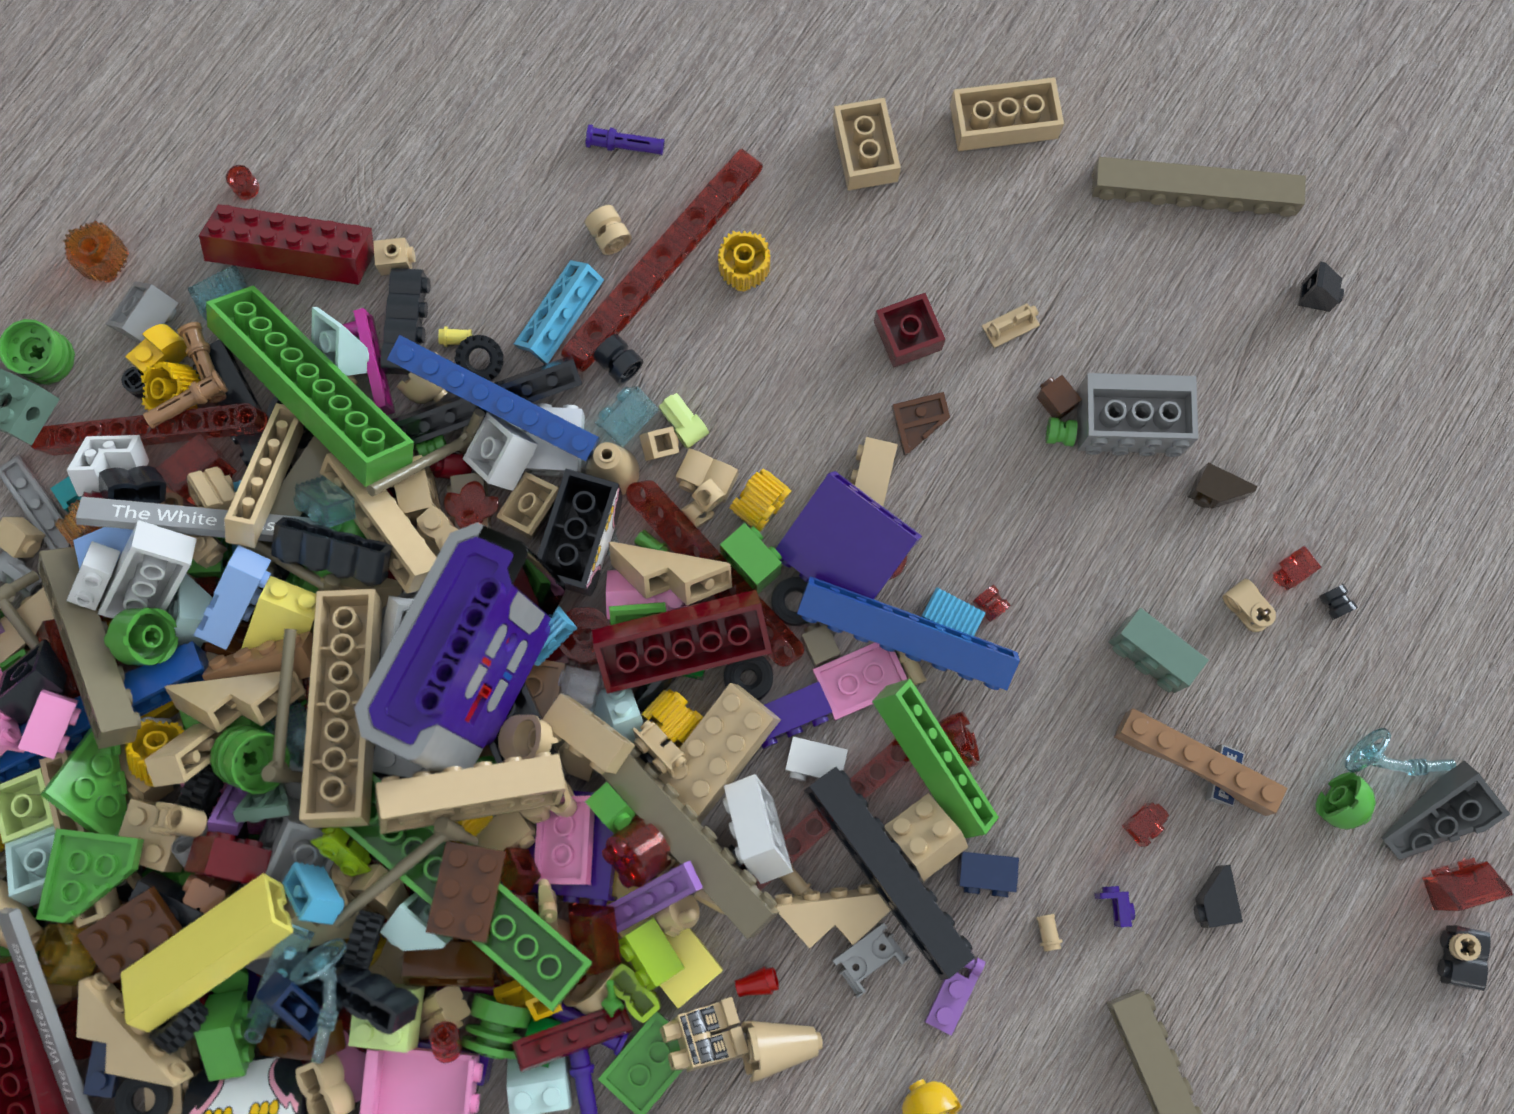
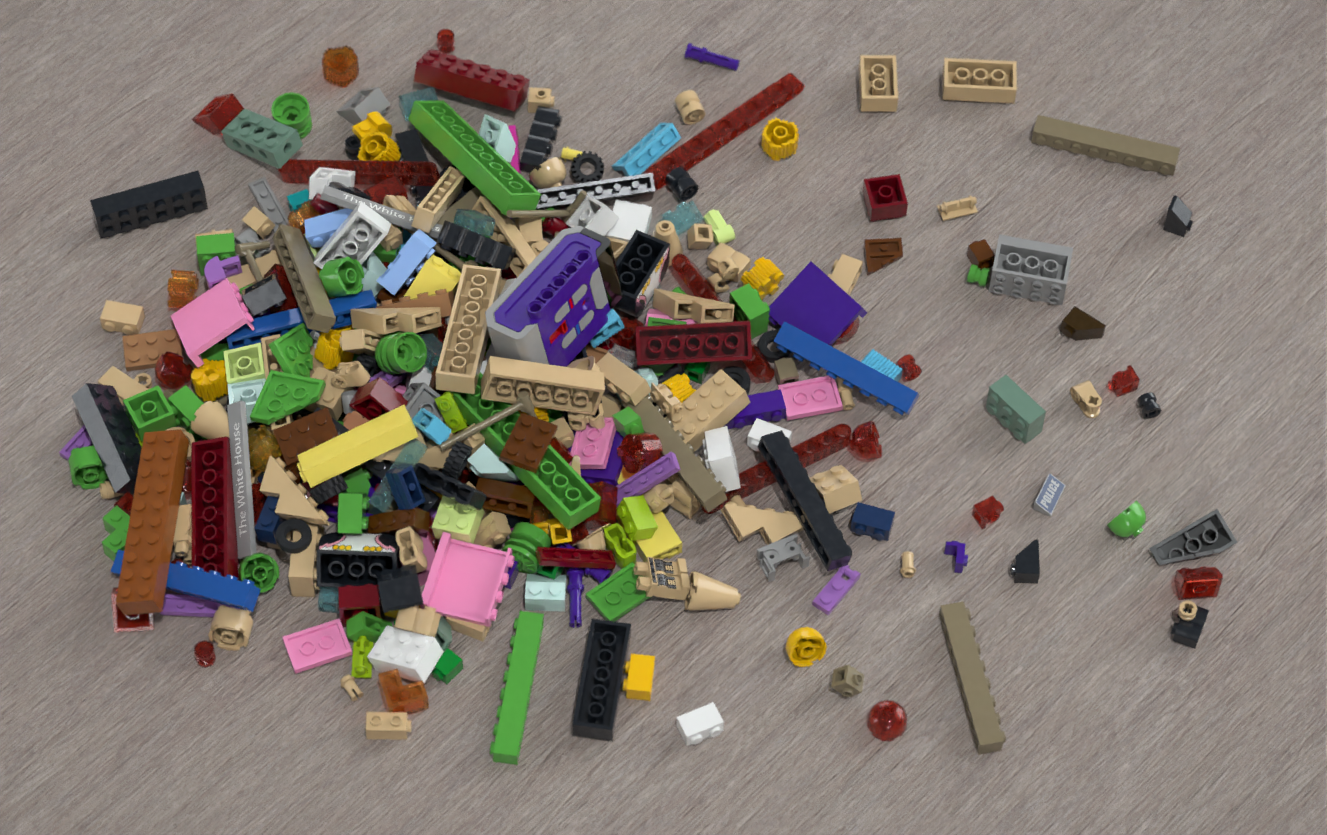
camera: 10 degrees right, 20 degrees down
(48, 724) = (276, 312): bright pink brick -> none
(93, 576) = (317, 238): white brick -> none
(197, 393) = (399, 151): medium nougat pin -> none
(199, 351) = (402, 130): medium nougat pin -> none
(263, 806) = (406, 378): sand green wing -> none
(277, 769) = (419, 354): dark tan bar -> none
(321, 966) = (432, 462): clear light blue dish -> none
(450, 1047) = (494, 536): clear red wheel -> none
(493, 398) = (595, 184): blue brick -> none
(611, 1002) = (604, 544): bright green hand -> none
(759, 982) = (704, 559): red cone -> none
(935, 758) = (849, 438): bright green brick -> none
(1232, 777) = (1060, 498): medium nougat arch -> none
(1374, 755) = (1150, 492): clear light blue dish -> none

